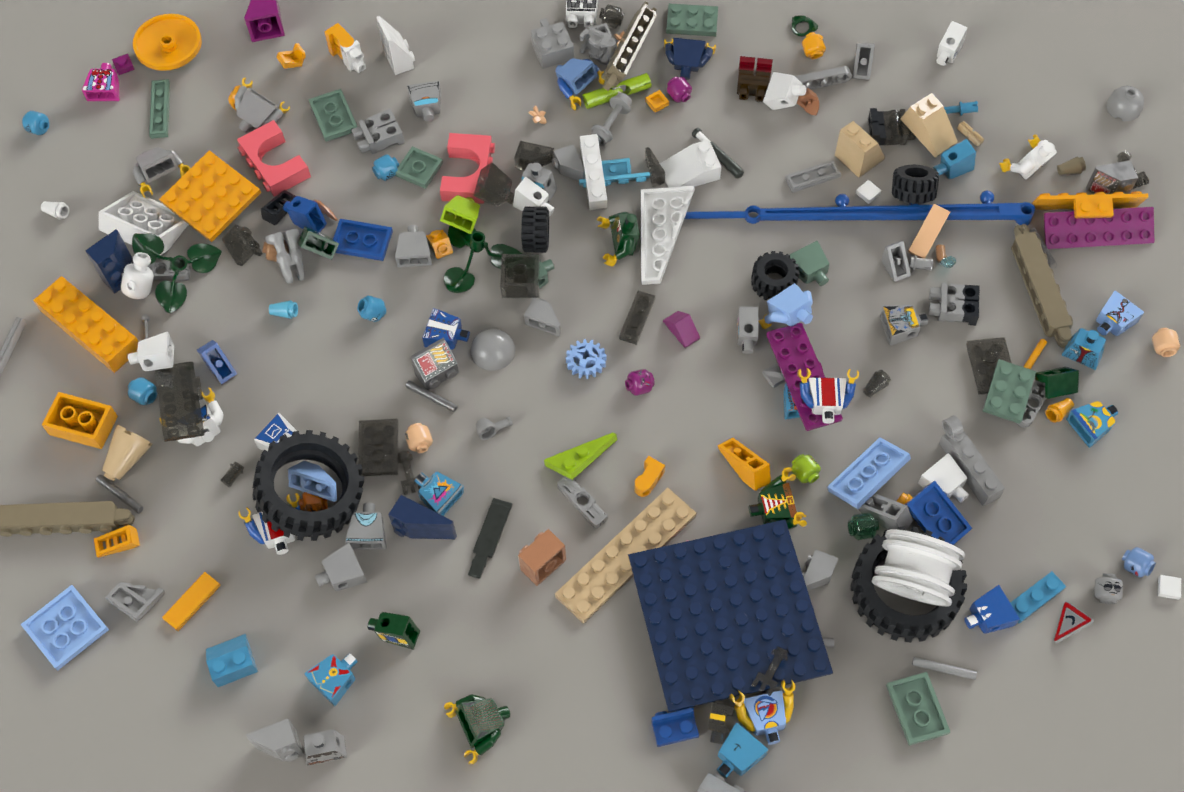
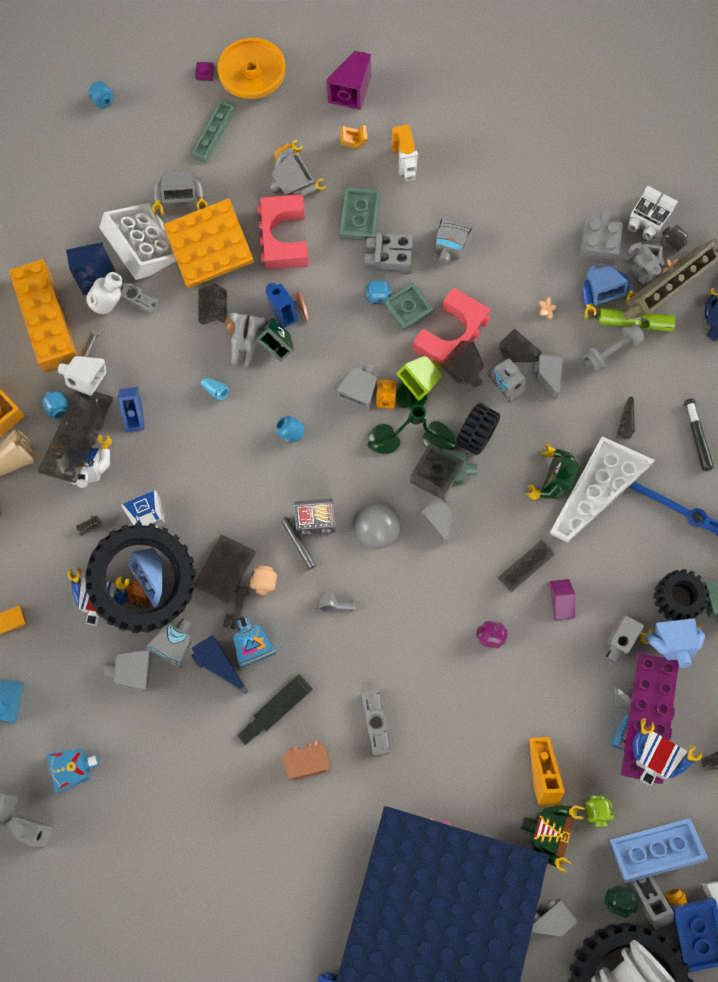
camera: 30 degrees right, 10 degrees up
(56, 209) = (76, 190): white cone -> none
(102, 84) = (175, 83): dark pink torso -> none
(172, 294) = (128, 323): dark green plant -> none
(268, 211) = (253, 285): black slope -> none
(362, 239) = (319, 354): blue plate -> none
(395, 48) = (451, 173): white slope -> none
(395, 629) = (144, 755): dark green torso -> none
(444, 325) = (342, 485): blue torso -> none
(480, 722) = (169, 887): dark green torso -> none
(531, 195) = (491, 389): white torso -> none
(575, 460) = (392, 679): lime wing -> none
(586, 359) = (461, 588): light blue gear -> none
(593, 172) = (565, 396): white arch -> none
(611, 566) = (405, 790): tan plate -> none
(618, 171) = (586, 403): medium azure bracket -> none
(648, 480) = (441, 739): light orange leg -> none
(657, 101) = (669, 350): light orange plate -> none
(679, 89) = (697, 349): magenta head -> none
(692, 166) = (664, 437): white slope -> none

